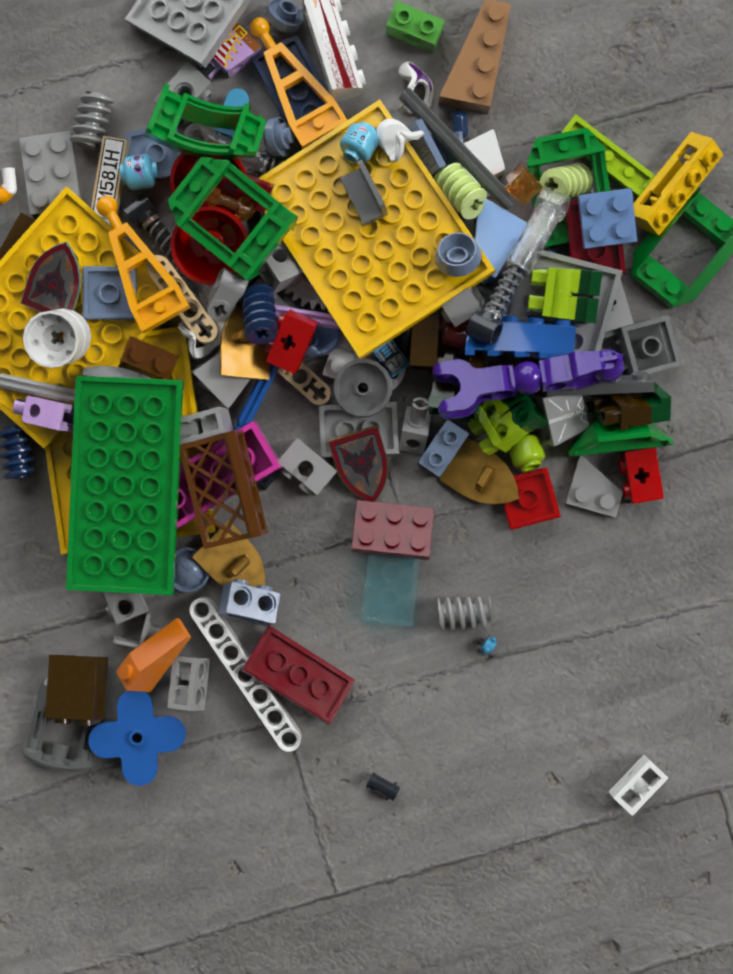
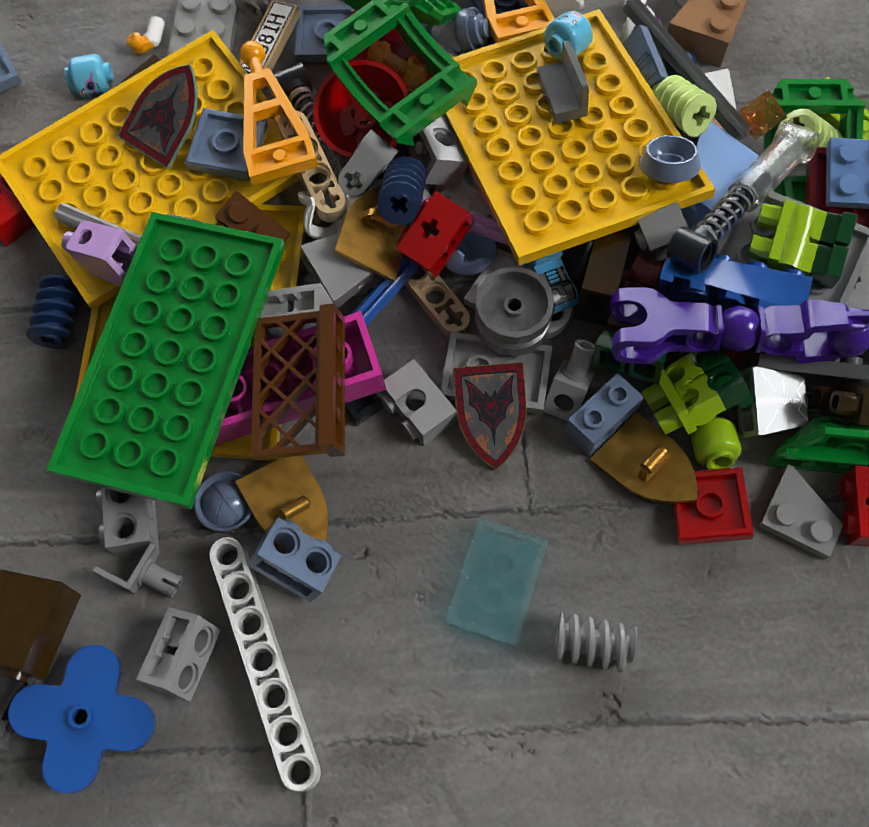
camera: 15 degrees right, 20 degrees down
(43, 336) = (143, 166): white wheel -> none
(139, 172) = (301, 35): medium azure head -> none
(152, 658) = (136, 606): orange slope -> none
(298, 675) = (337, 679): dark red tile -> none
(392, 530) = (515, 507): plate -> none
(393, 136) = (611, 36): white piece -> none
(488, 645) = (621, 701): dark azure piece -> none

